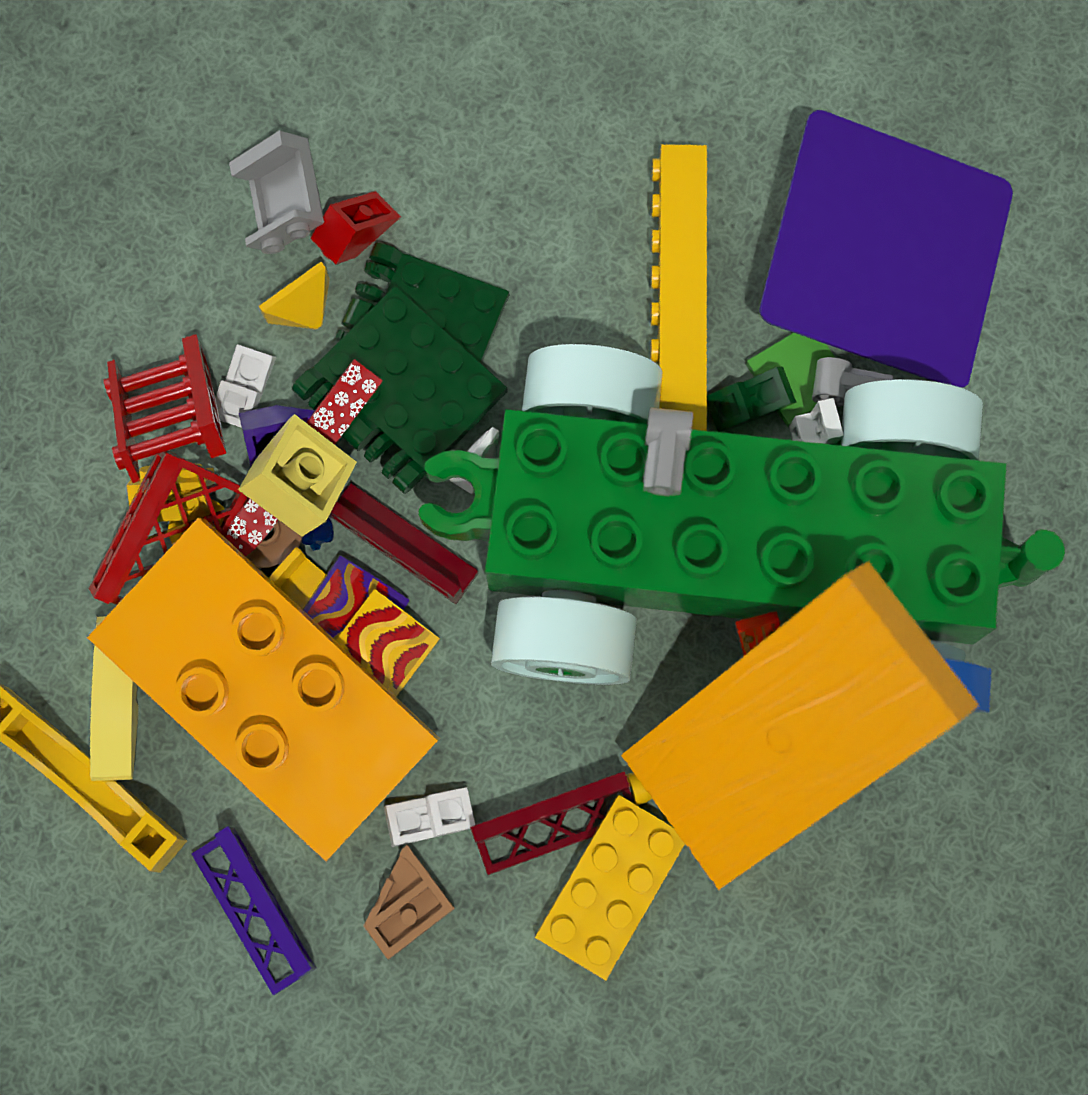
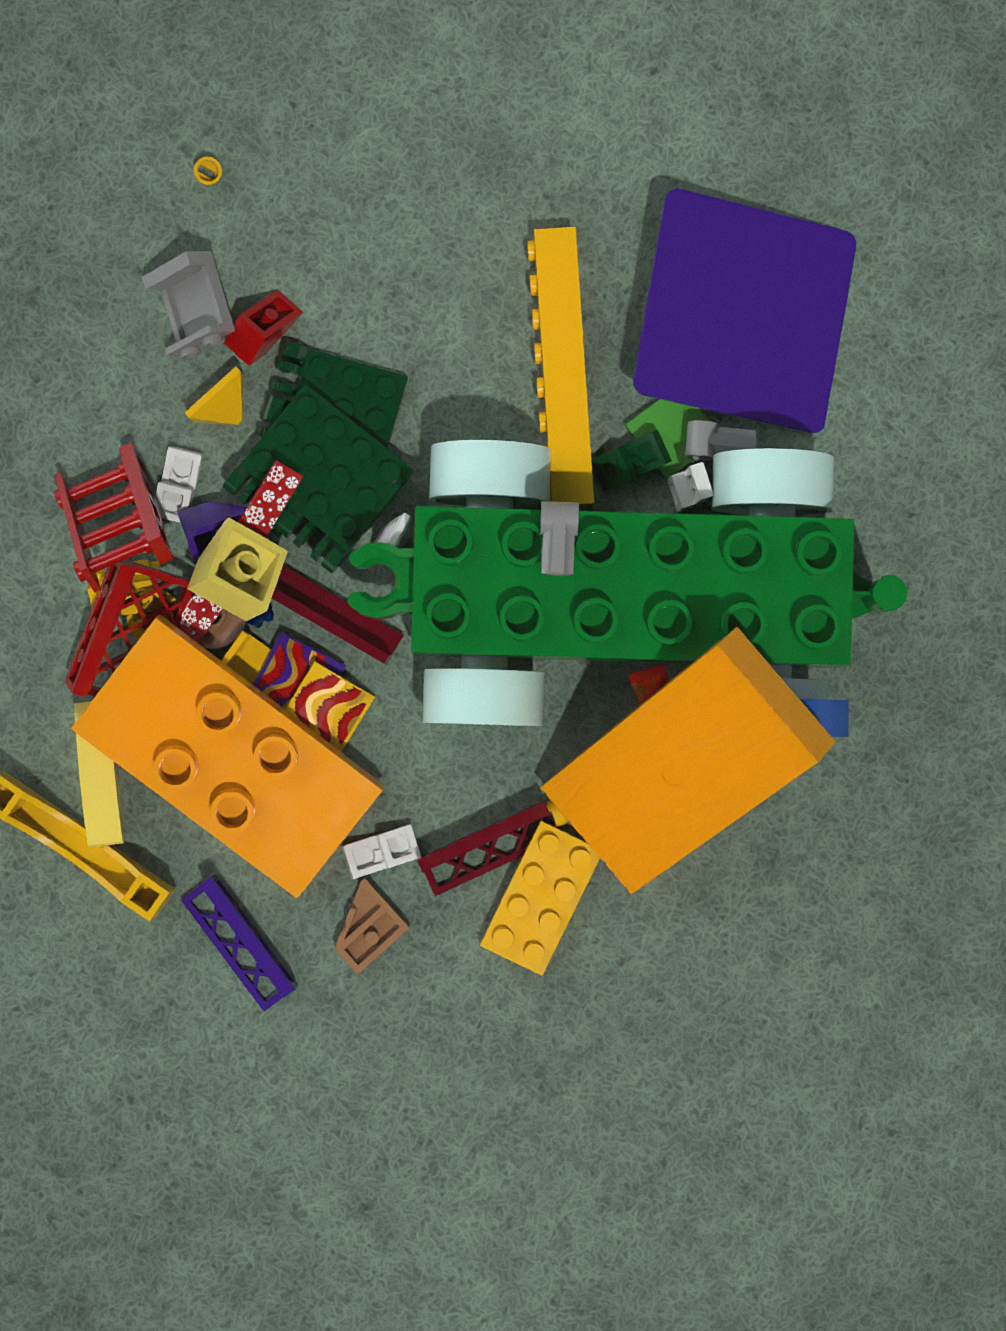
camera: 10 degrees left, 10 degrees up
(315, 56) = (211, 165): none -> yellow hinge

